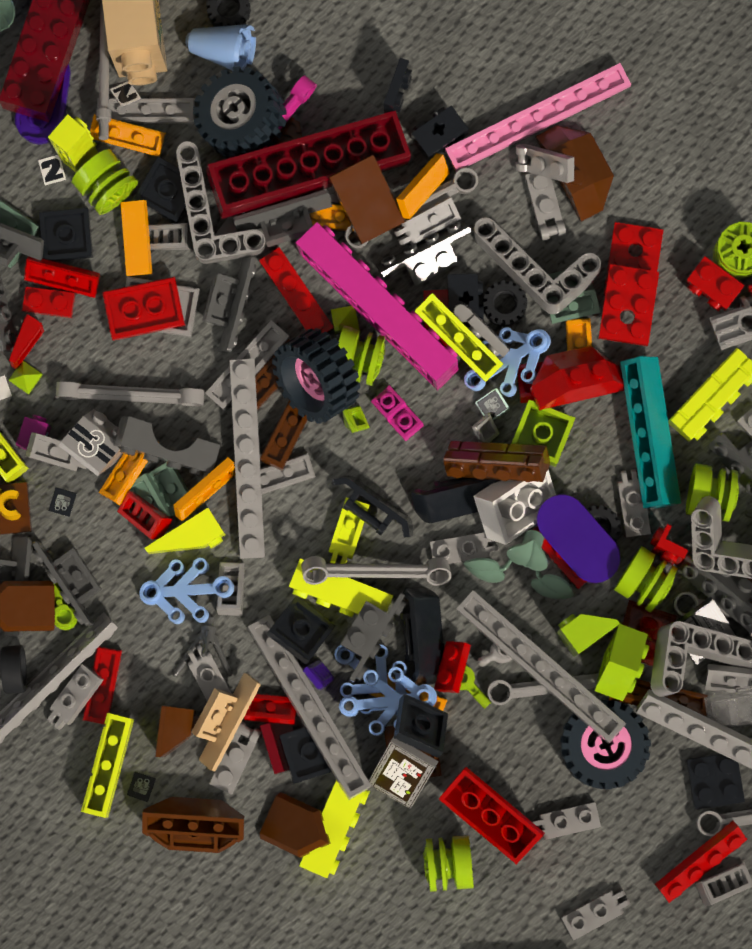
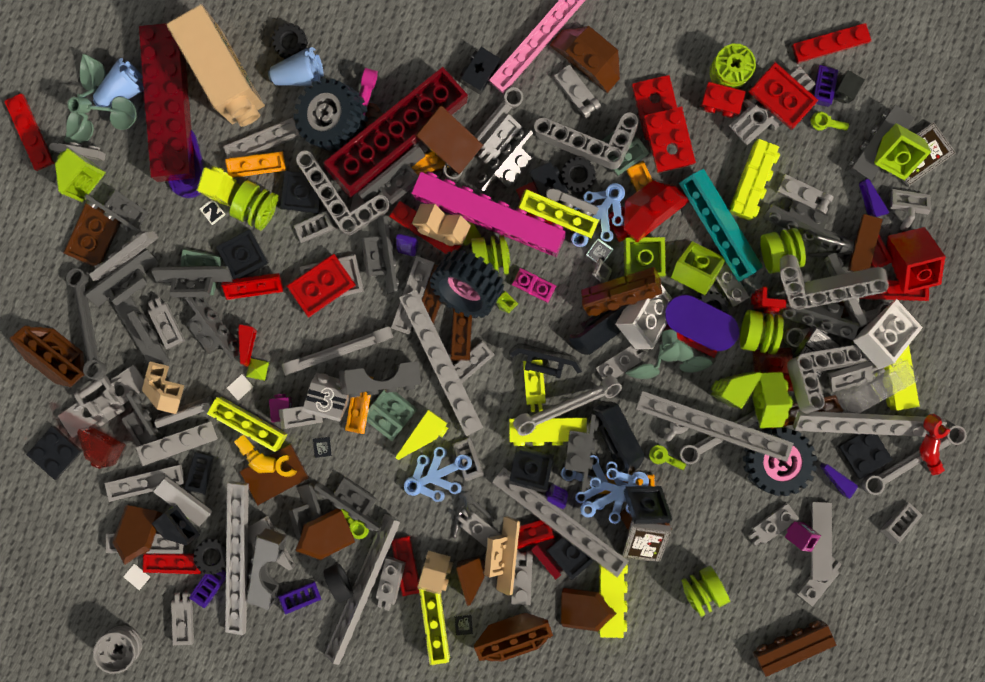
camera: 25 degrees left, 5 degrees up
(48, 302) = (251, 308): red plate -> none
(103, 114) = (231, 155): light grey bar -> none
(125, 94) = (241, 134): sticker -> none
(133, 704) = (434, 573): none -> tan brick
(136, 238) = (294, 236): light orange tile -> none
(156, 525) = (396, 438): red slope -> none
(204, 489) = (420, 397): light orange tile -> none
(265, 302) = (406, 245): none -> dark purple slope
(308, 290) = (444, 228): none -> tan brick
(400, 82) = (437, 42): black plate -> none
(423, 186) = (485, 114): light orange tile -> none
(452, 667) = (649, 450): red plate -> none
(491, 815) = (720, 545): red slope -> none
(545, 163) = (566, 60): light grey plate -> none
(595, 847) = (802, 536): none -> magenta brick
(602, 472) = (698, 268): none -> lime slope
(616, 864) = (822, 553): none -> light grey tile
(671, 805) = (843, 484): none -> dark purple slope
(701, 861) = (877, 518): red plate -> none

